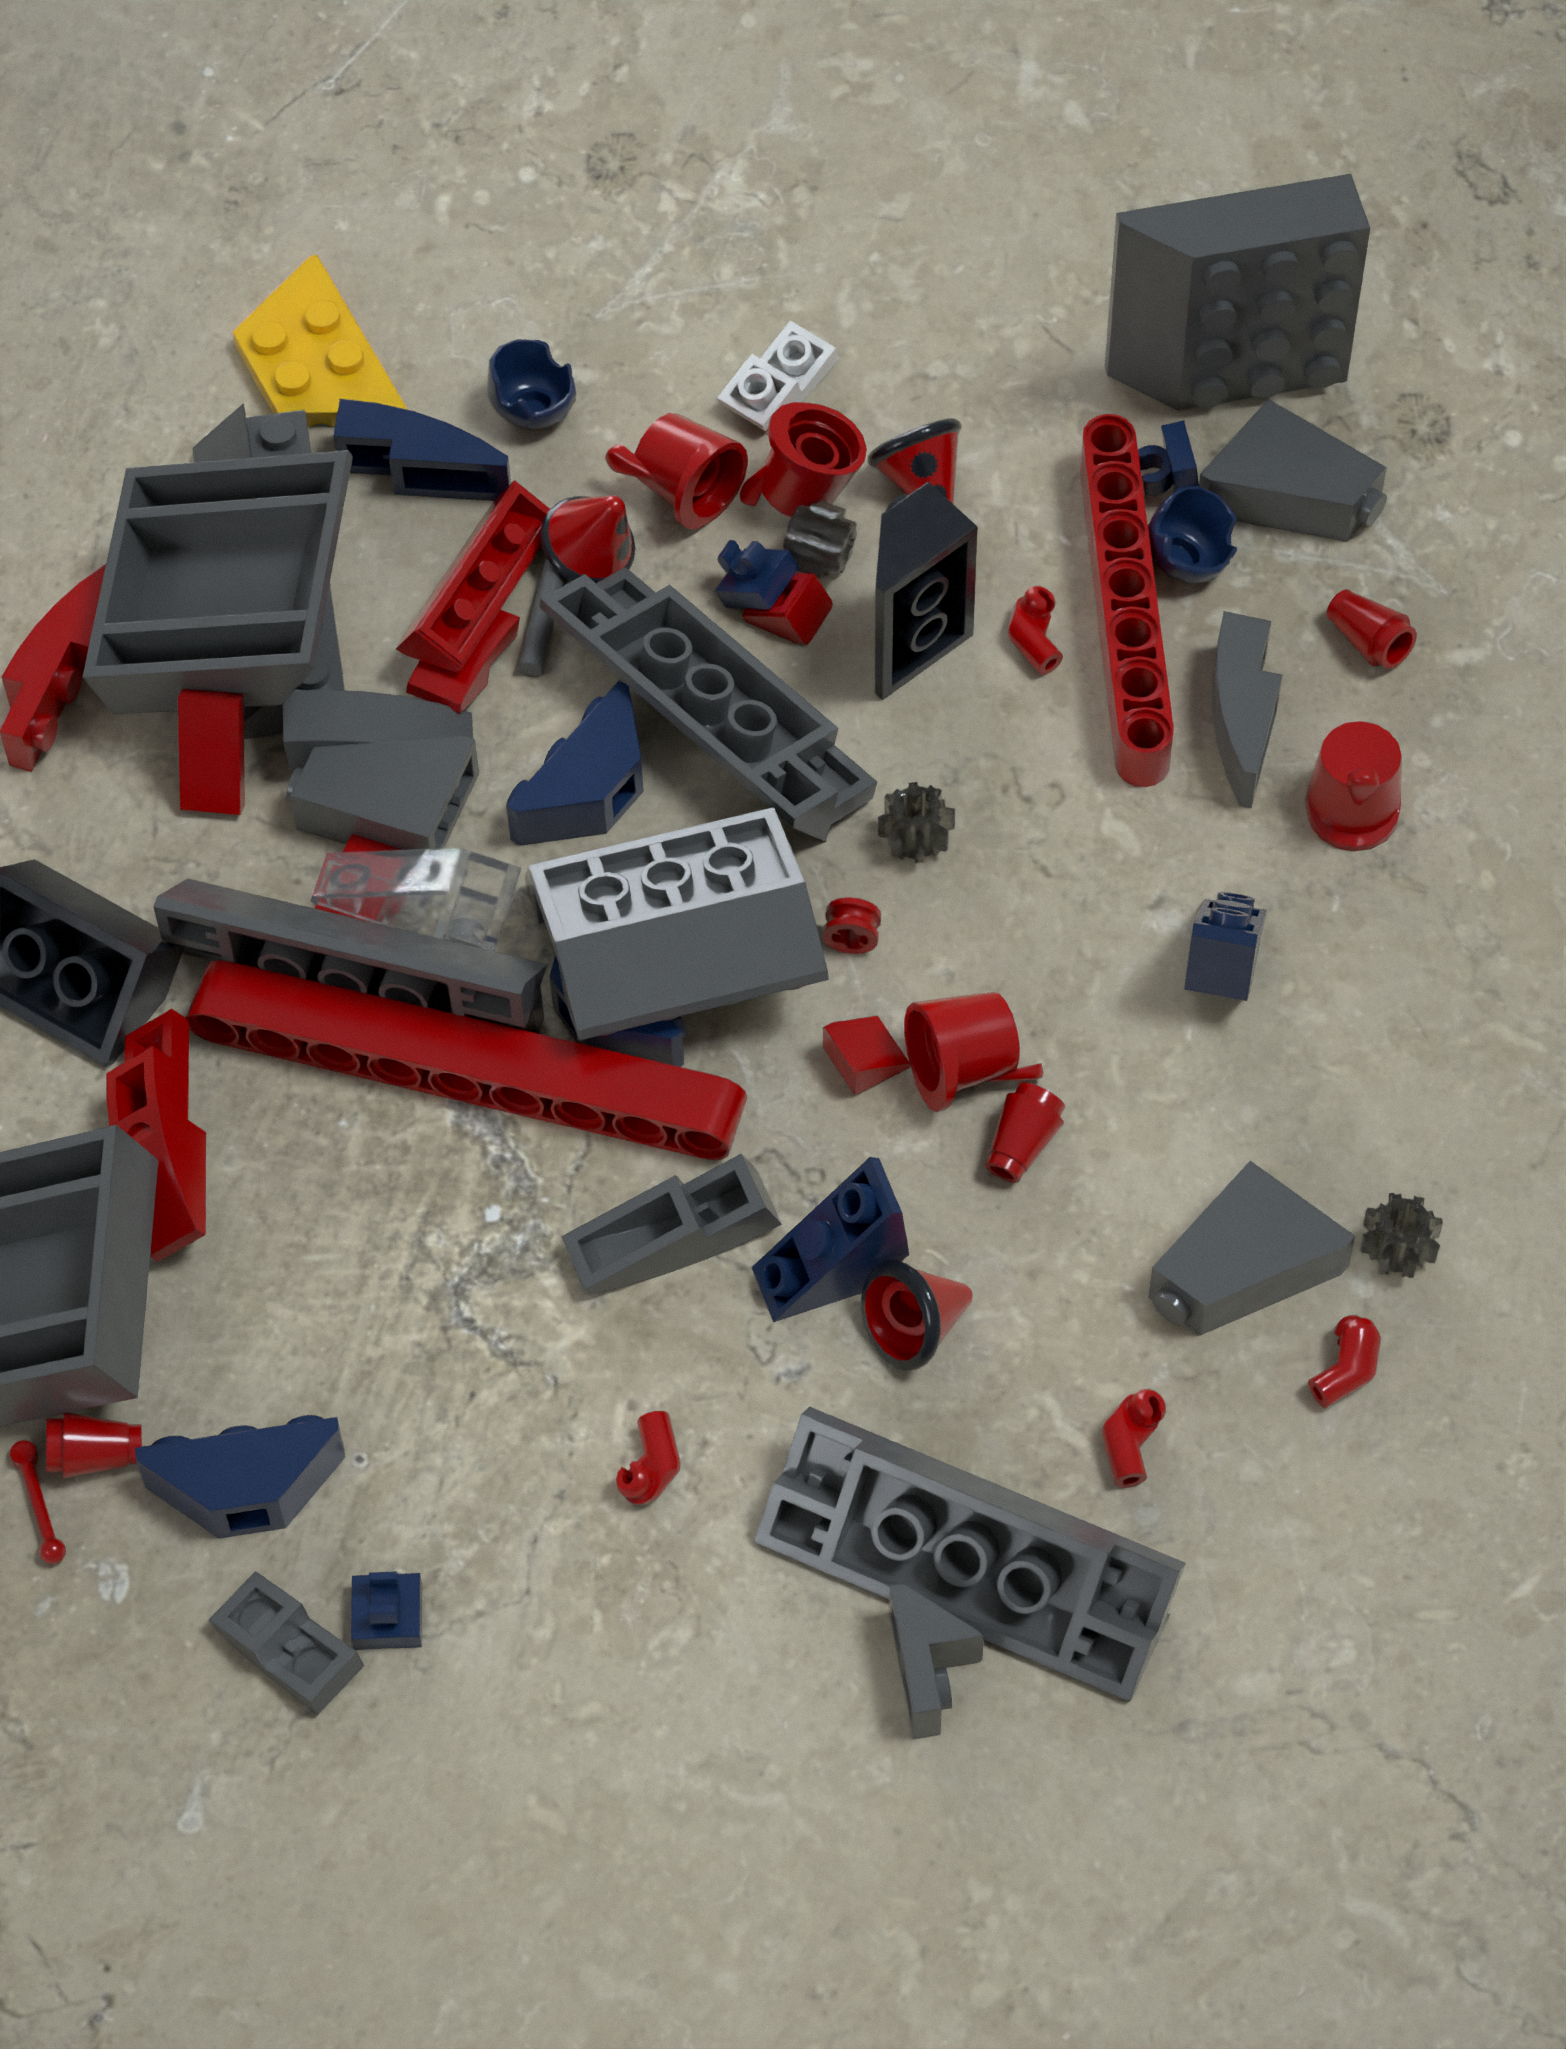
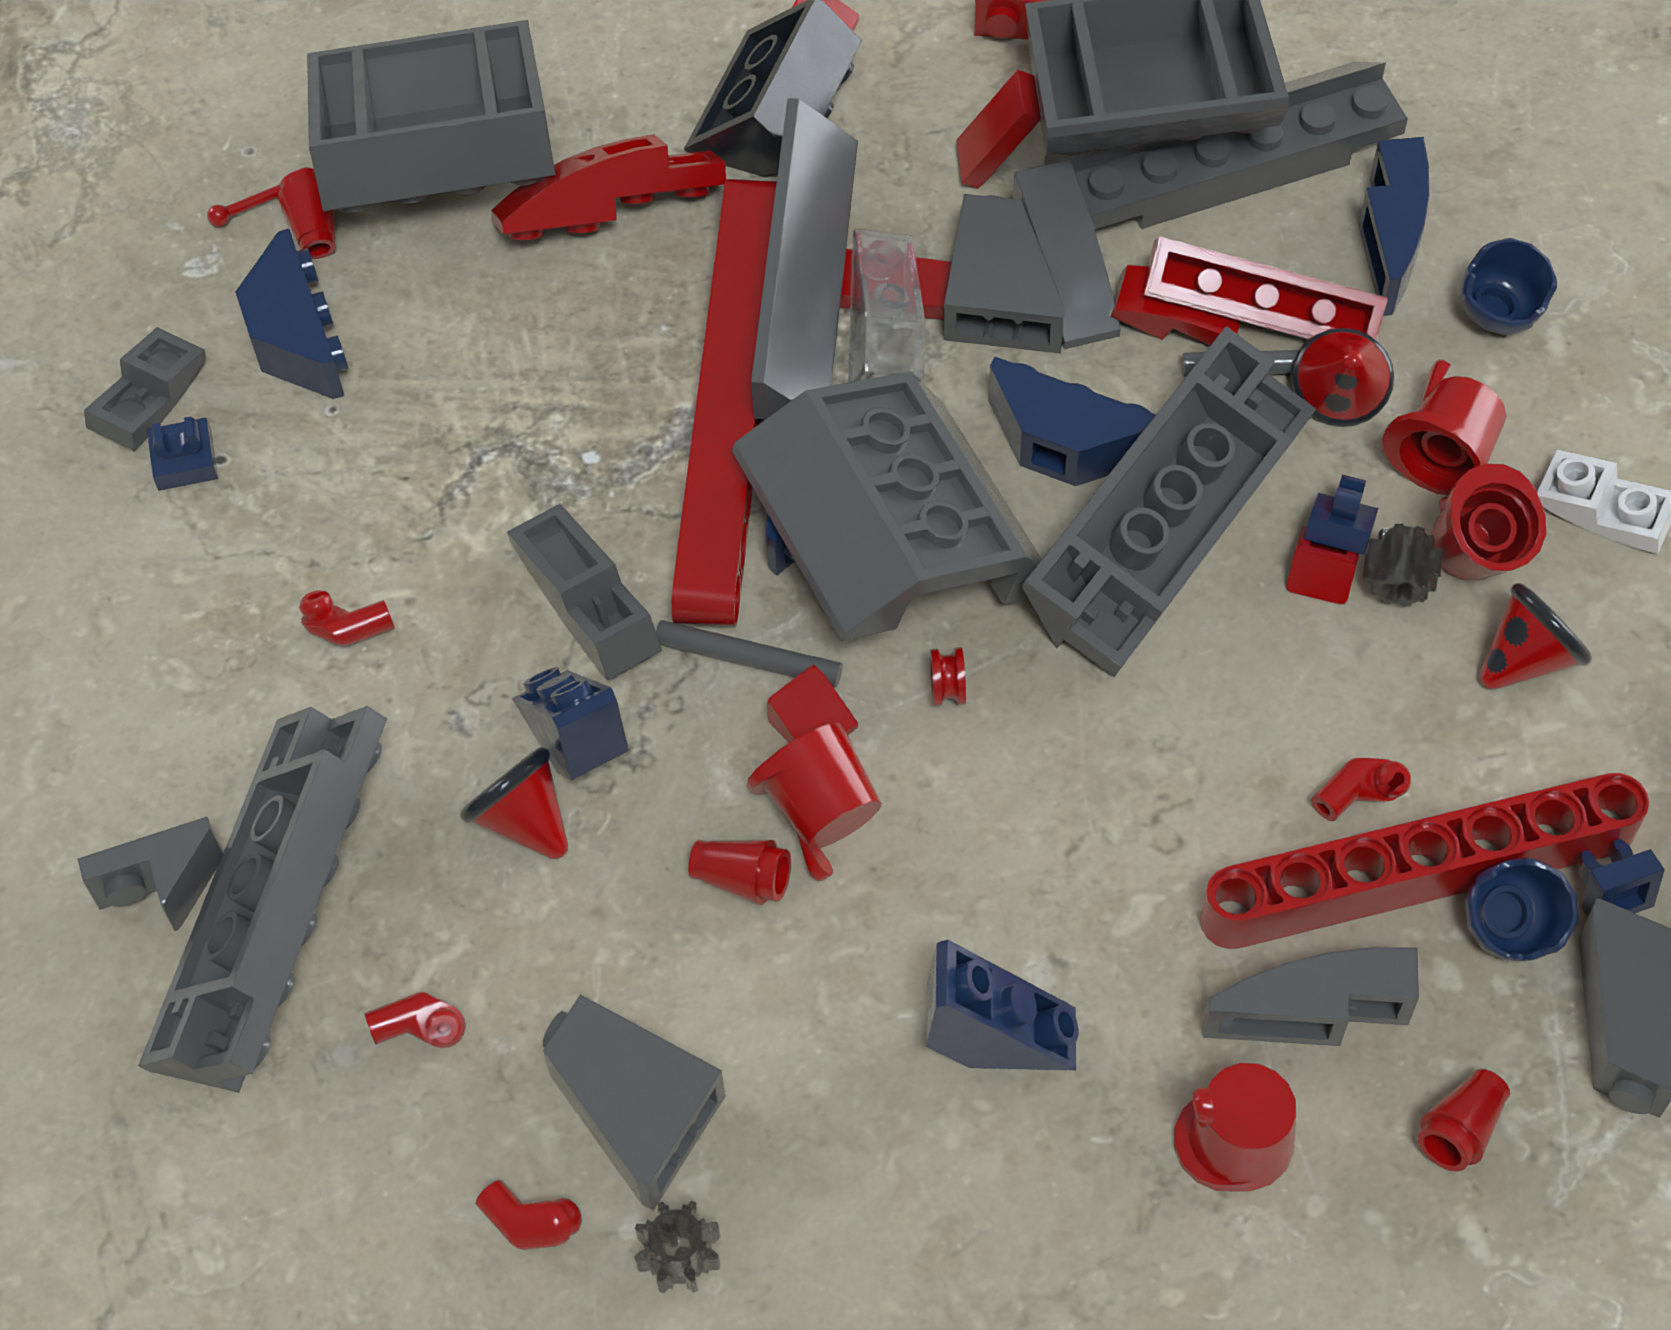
camera: 80 degrees right, 0 degrees up
(311, 349) = (1495, 125): yellow wing -> none
(780, 1090) = (743, 651): none -> dark grey bar
(916, 822) = (1081, 727): clear smoke gear -> none
(922, 586) = (1329, 631): black slope -> none

